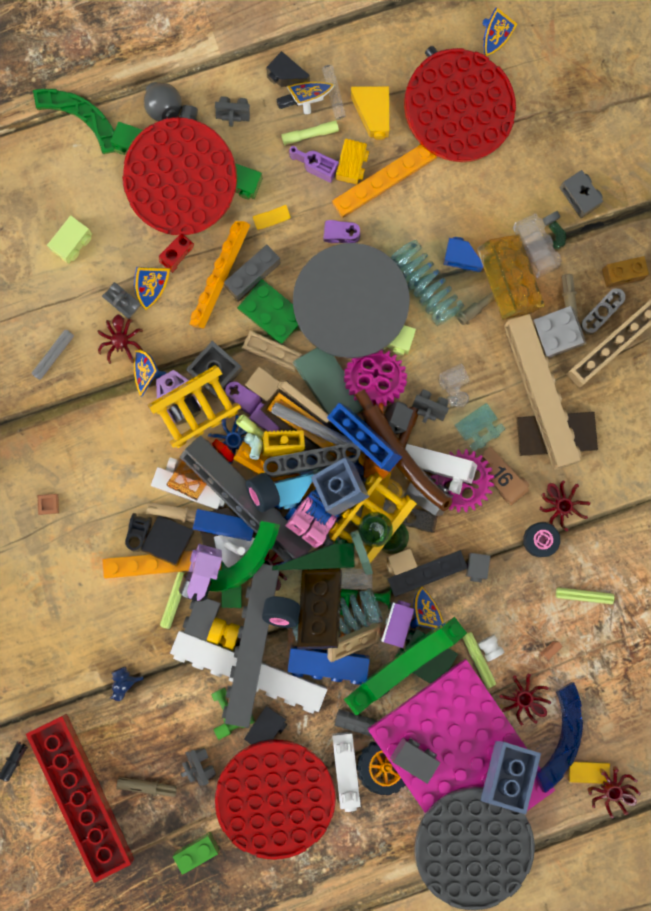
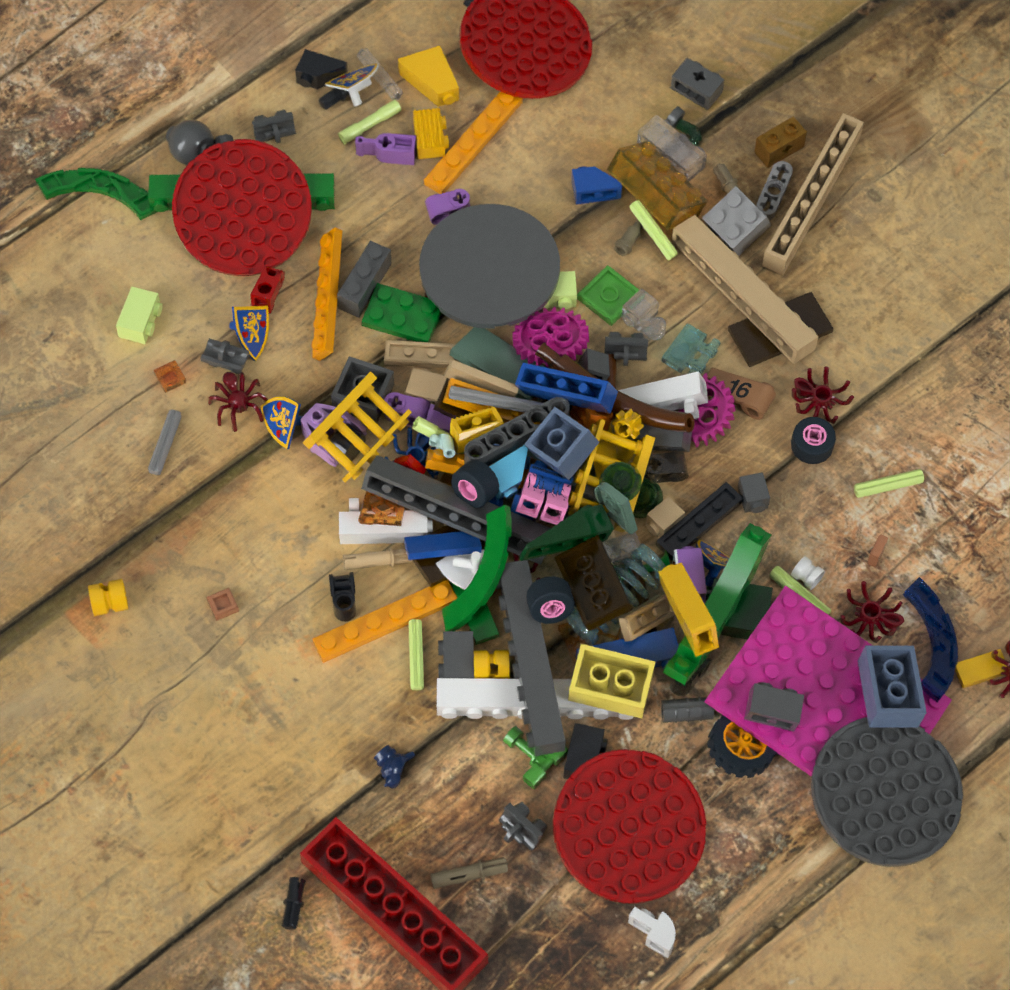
camera: 20 degrees left, 20 degrees down
(75, 300) = (170, 376): none -> clear orange plate
(167, 540) = (382, 589): black tile -> none
(196, 853) = (560, 922): bright green brick -> none
(204, 565) = (436, 599): lavender piece -> none
(265, 886) = (660, 932): none -> white brick
(271, 217) = (362, 220): yellow sticker -> none
(303, 690) = (611, 681): none -> light yellow brick
(346, 771) = (699, 765): white brick -> none
(380, 661) = (689, 609): none -> yellow slope
(400, 259) = (594, 254): clear light blue piece -> none
(400, 484) = (627, 424): none -> yellow gear
(436, 354) = (607, 294): none -> bright green tile
(493, 314) = (653, 229): none -> yellowish green axle

